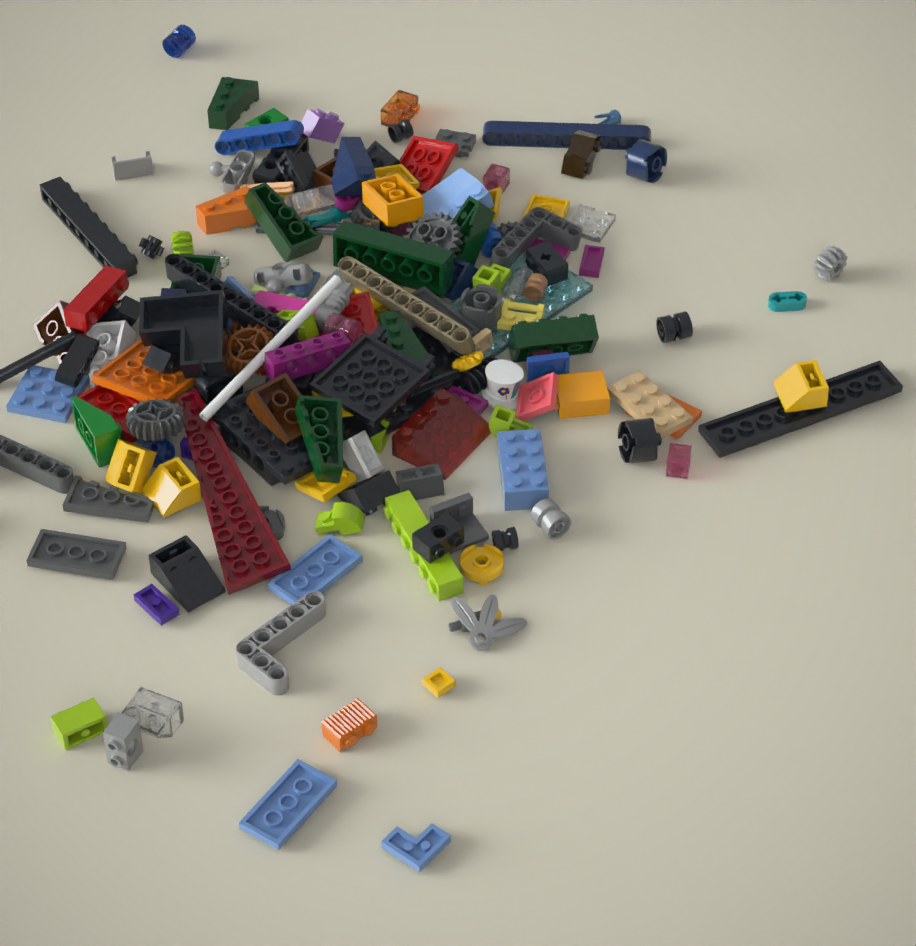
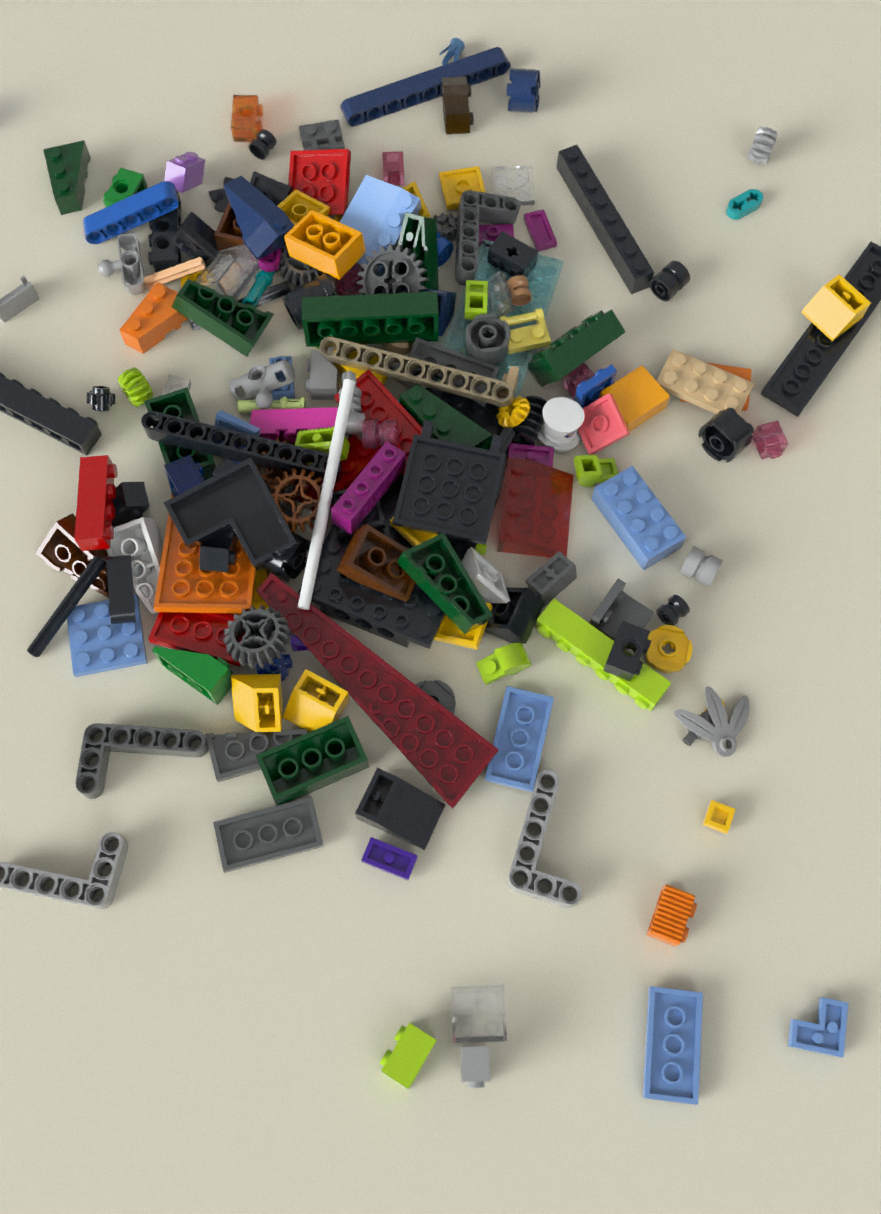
camera: 30 degrees left, 25 degrees up
(142, 518) = (312, 761): none -> dark green slope
(650, 268) = (604, 219): none -> black brick

